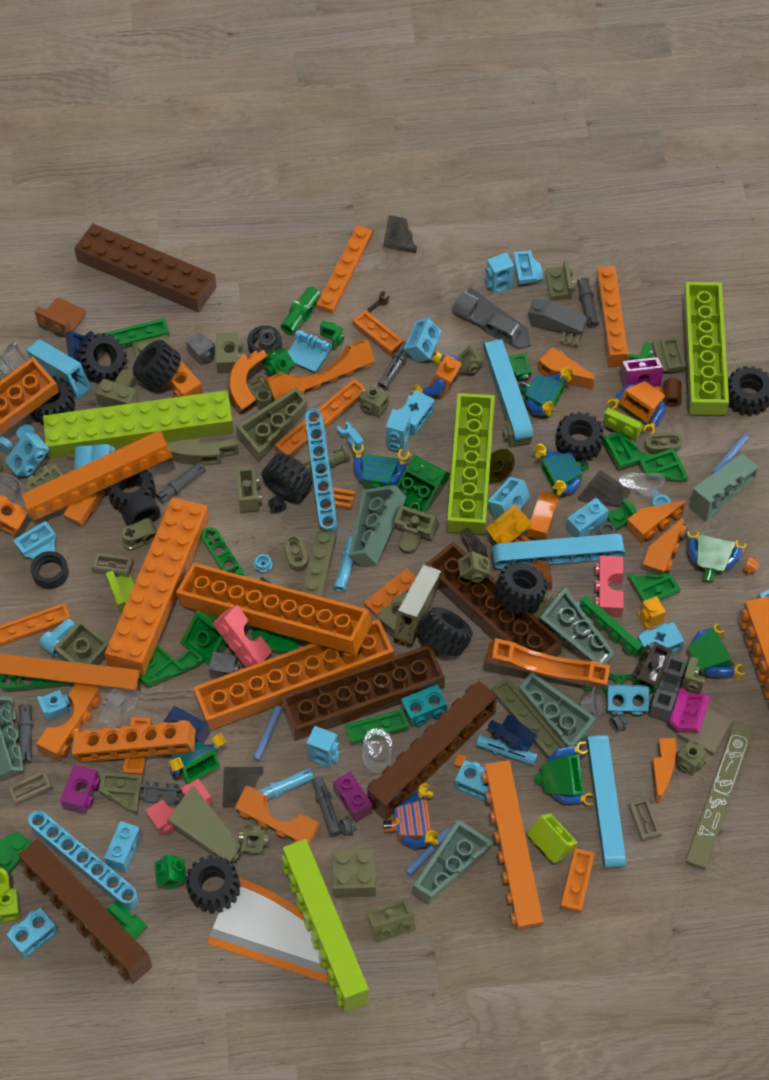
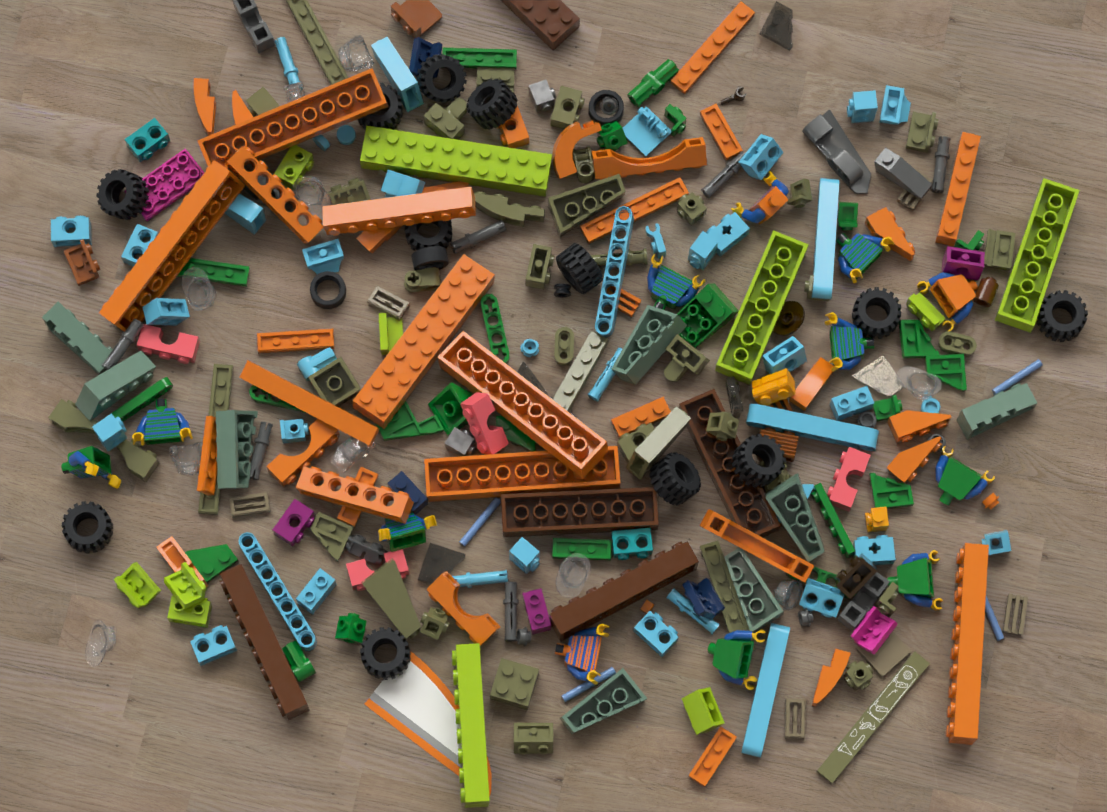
camera: 15 degrees right, 15 degrees up
(27, 454) = (339, 163): medium azure brick -> none
(513, 846) = (664, 706): orange brick -> none

